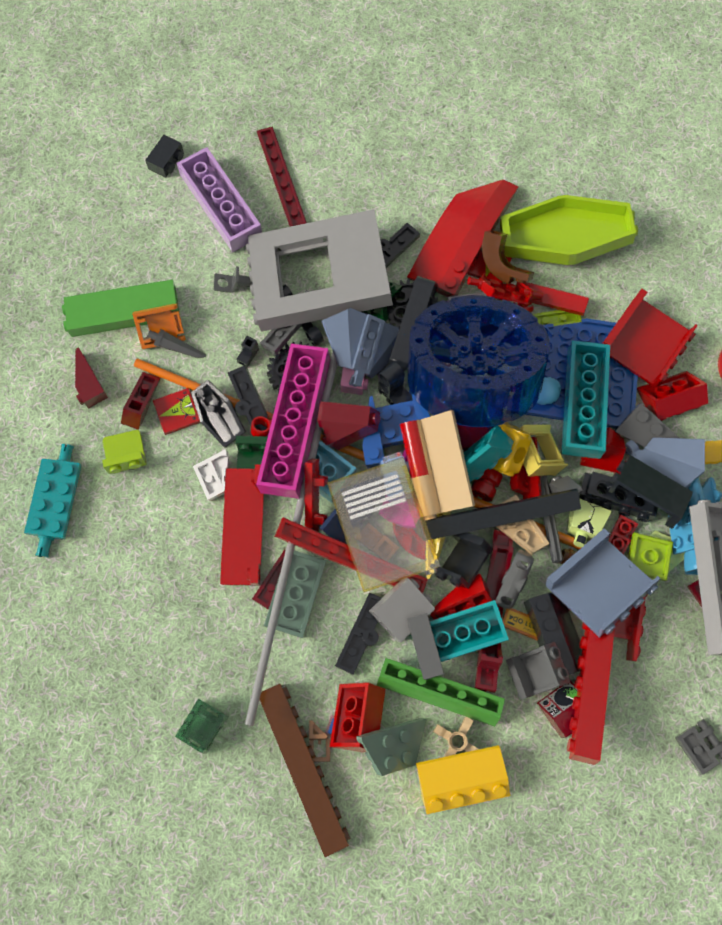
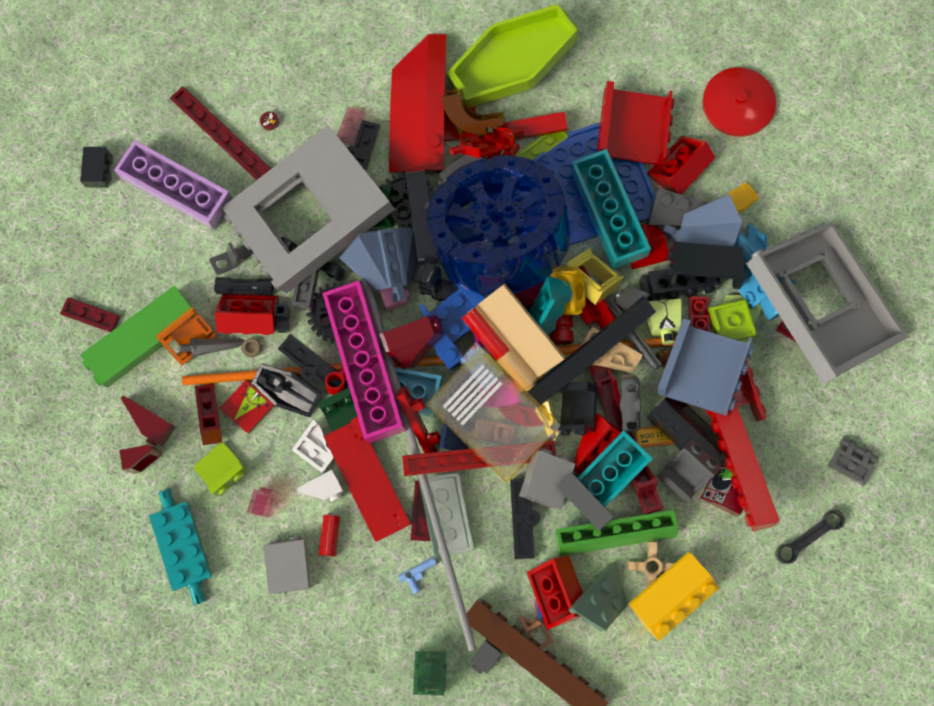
camera: 25 degrees left, 5 degrees up
(60, 405) = (138, 458): none -> dark red tile
(91, 271) = (89, 315): none -> dark red tile
(132, 564) = (287, 565): none -> light grey brick
(142, 498) = (261, 502): none -> clear pink brick
(183, 557) = (329, 535): none -> red axle
(202, 512) = (323, 487): none -> white slope
(208, 364) = (251, 348): none -> dark tan tile
(218, 333) = (246, 314): none -> red slope
(219, 304) = (230, 286): none -> black axle
(240, 632) = (416, 574): none -> light blue hose
(259, 741) = (484, 658): none -> dark grey brick
(328, 187) = (269, 120): none -> tile
(394, 223) = (350, 126): none -> clear pink tile
(550, 391) = (575, 216): medium azure hair -> none
(624, 795) = (810, 536): none -> black piece

